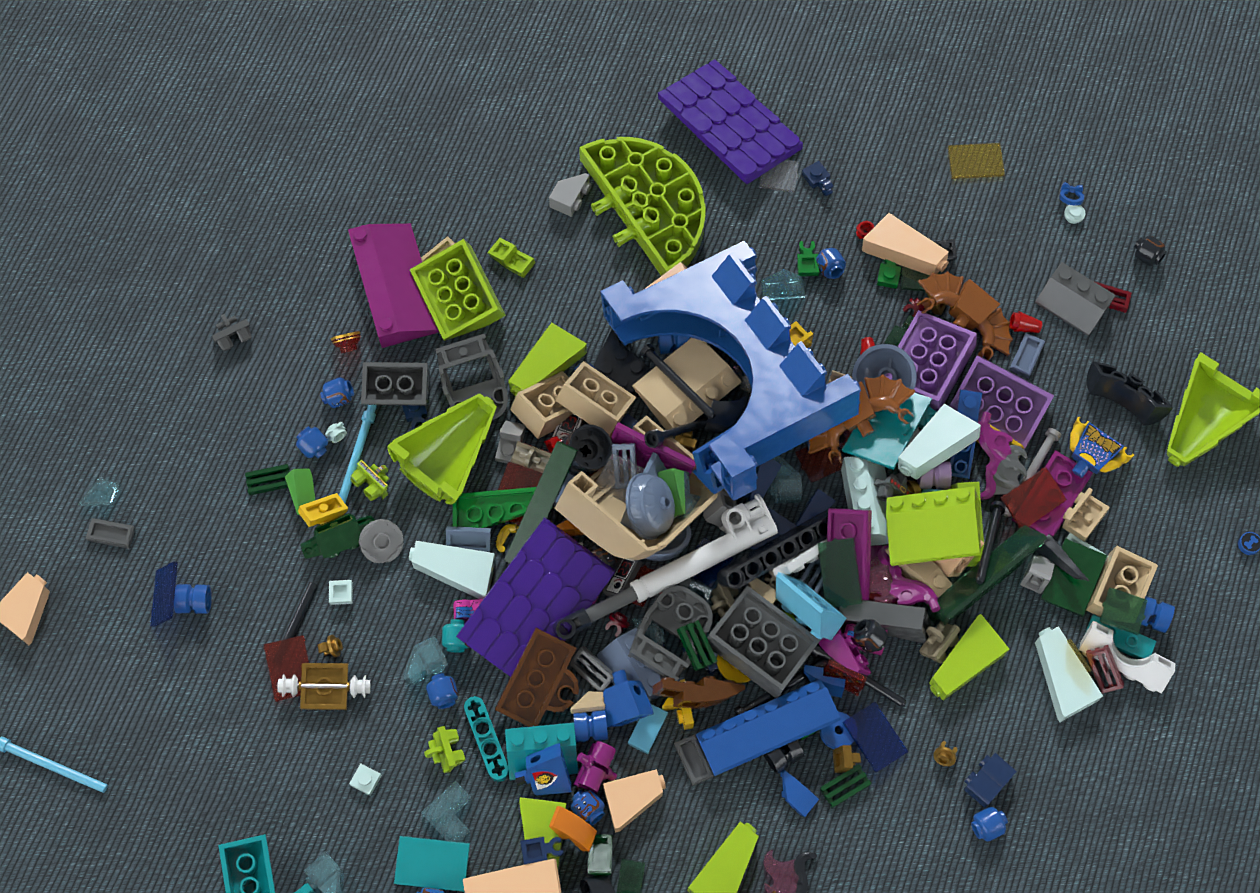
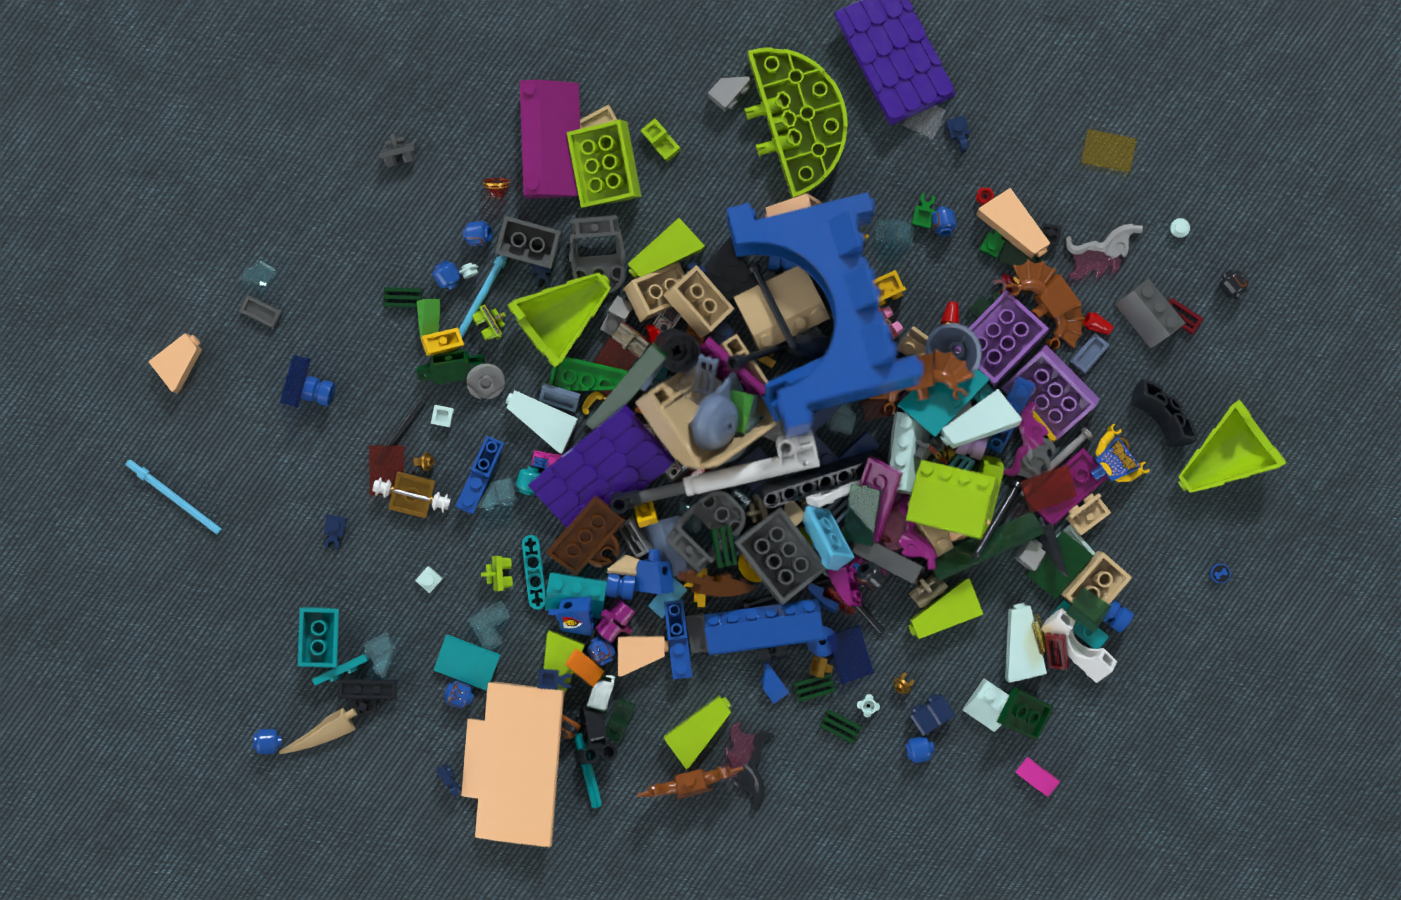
camera: 15 degrees right, 20 degrees up
(241, 749) = (334, 527): none -> dark blue plate
(398, 644) = (480, 475): none -> blue slope
(442, 691) = (507, 524): blue head -> none
(597, 637) = (646, 514): none -> yellow slope
(618, 620) = (668, 503): dark red plate -> none
(673, 770) = (678, 639): none -> blue slope
(909, 827) = (854, 733): none -> dark green tile
(918, 786) = (863, 705): none -> light aqua plate
(1003, 258) = (1101, 255): none -> piece
(1052, 751) = (986, 704): none -> light aqua slope
(1077, 190) = (1190, 206): blue piece -> none
(1094, 747) = (1025, 714): none -> dark green tile
(1134, 819) = (1037, 777): none -> dark pink slope

